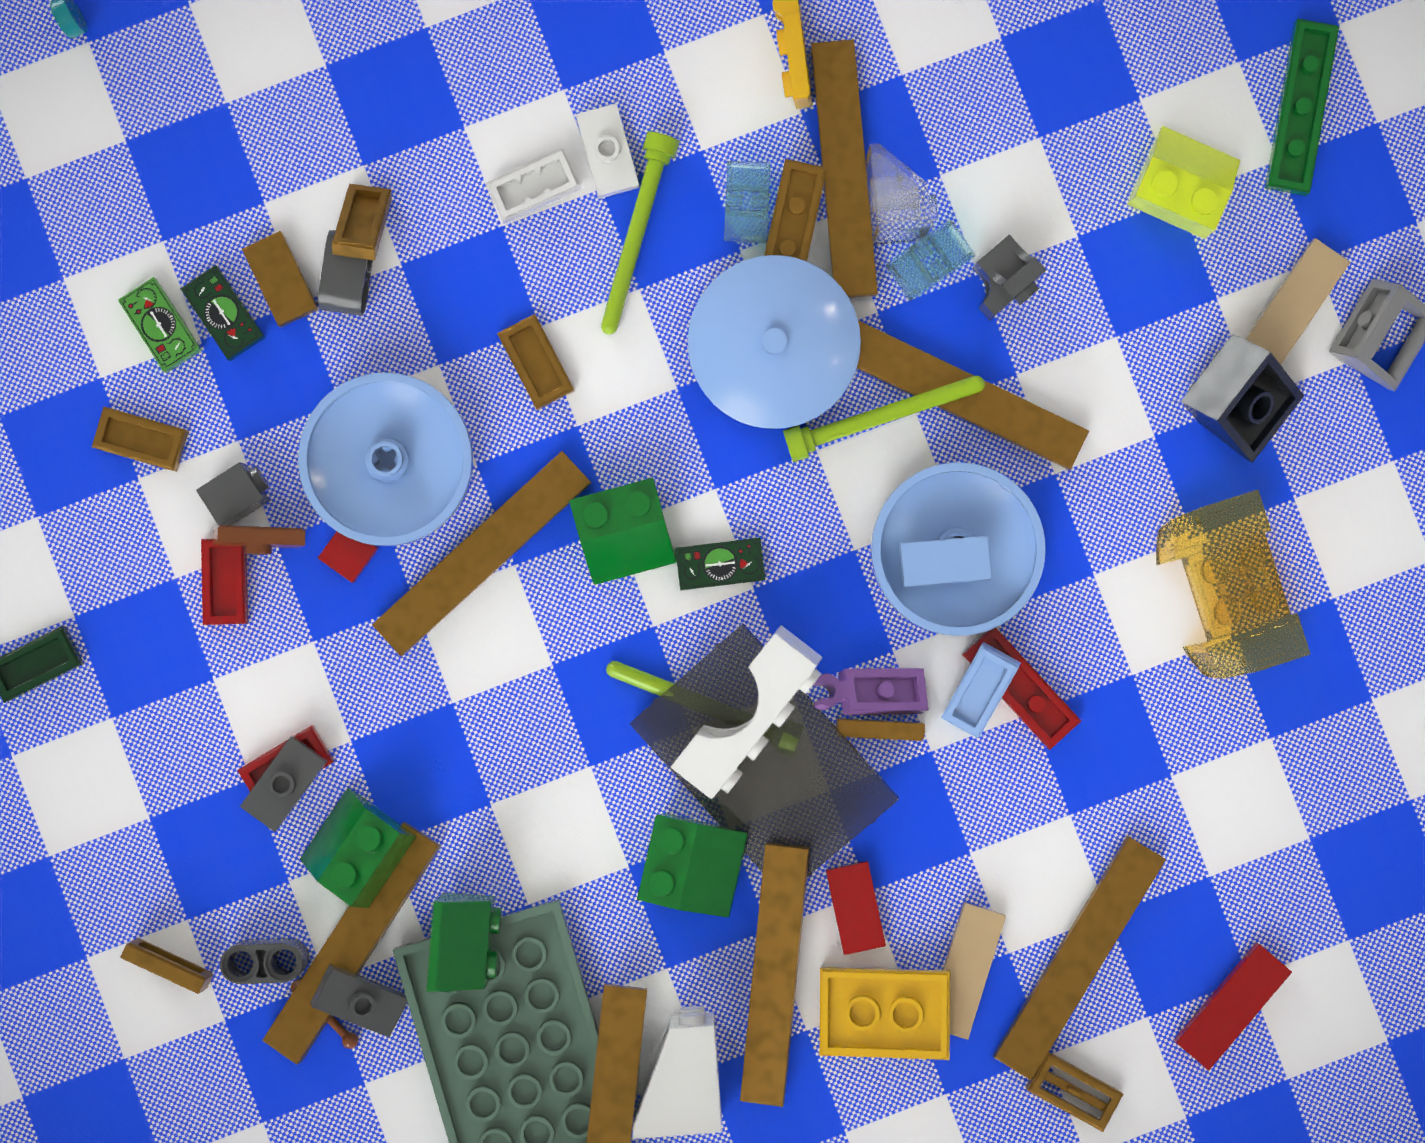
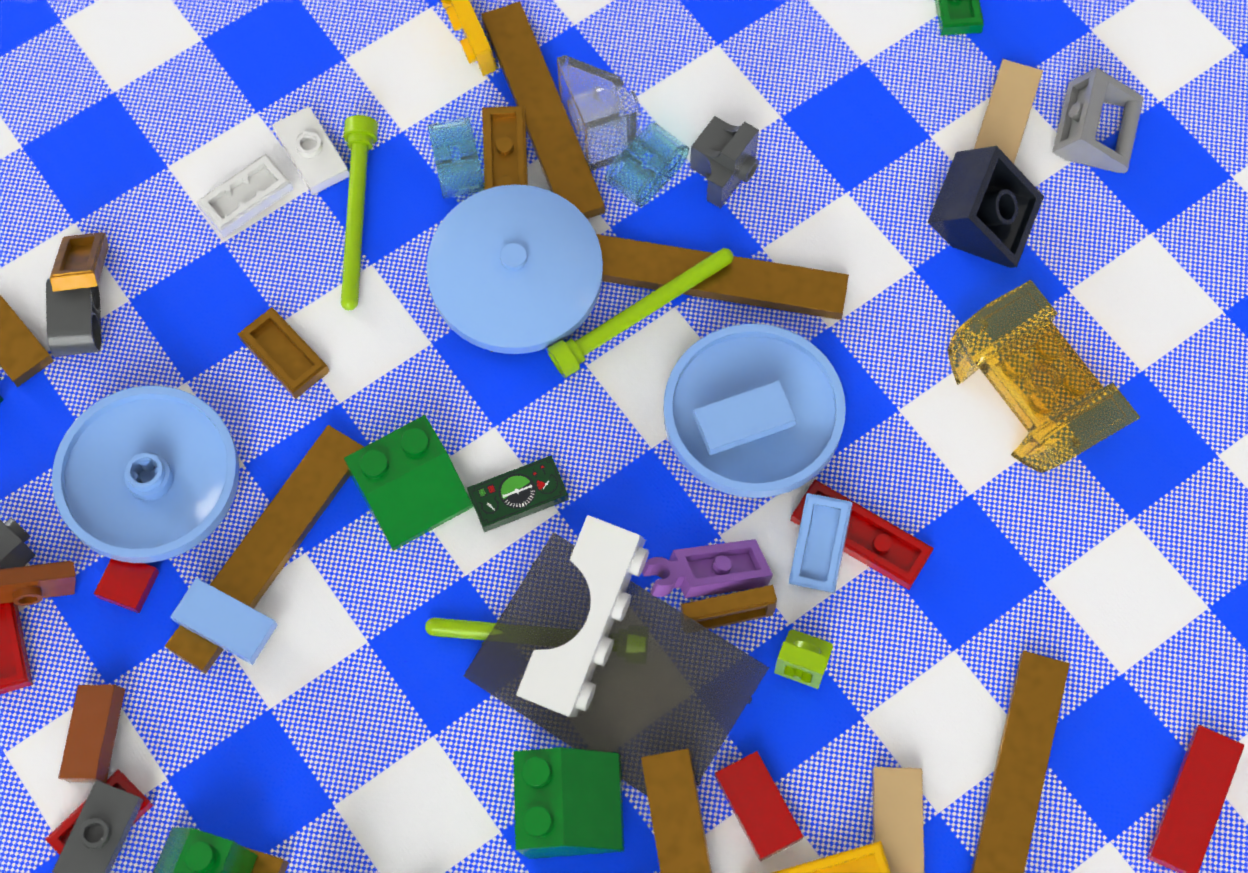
camera: 15 degrees left, 20 degrees down
(293, 687) = (91, 733): none -> dark orange tile
(428, 619) = (224, 621): none -> light blue tile
(934, 791) = (803, 658): none -> lime bracket
(1185, 183) = (865, 47): neon yellow slope -> none

